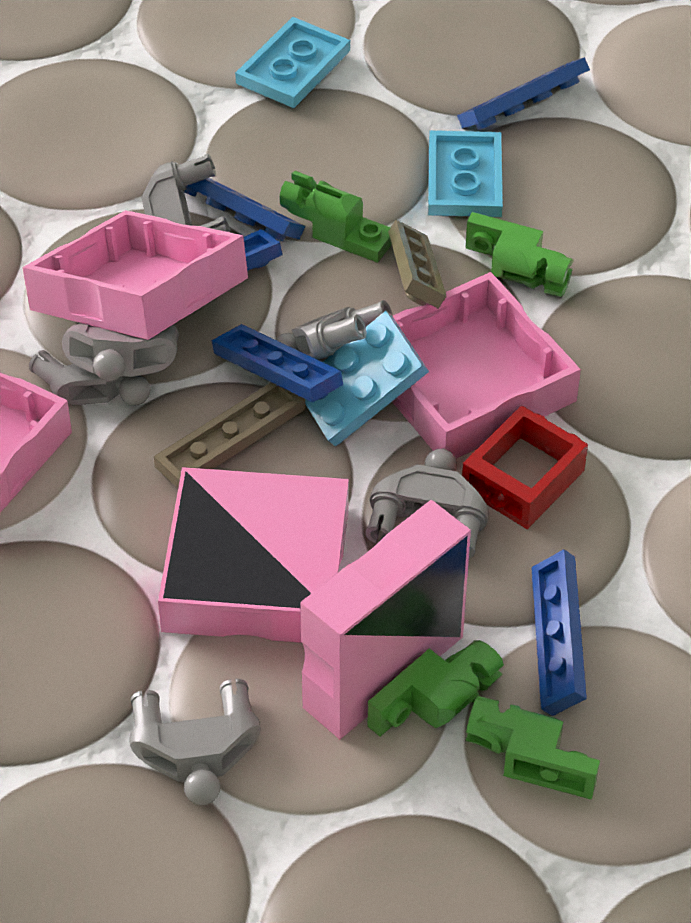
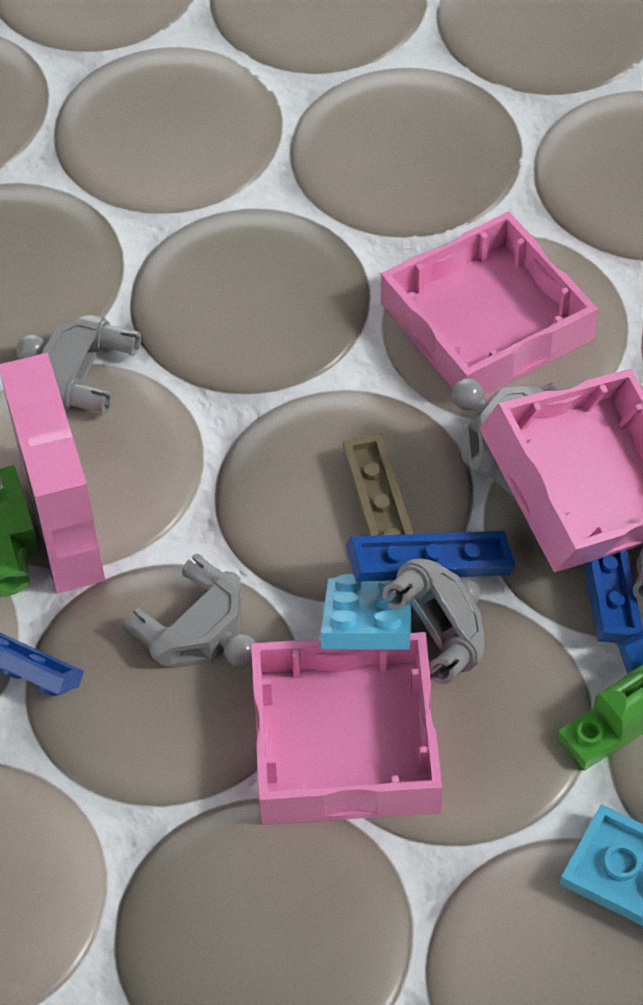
camera: 120 degrees right, 5 degrees up
(250, 551) = (224, 464): bright pink tile -> none
(417, 265) = (495, 727): dark tan plate -> none
(508, 494) = (177, 682): red window -> none
(518, 253) = (477, 858): bright green plate -> none

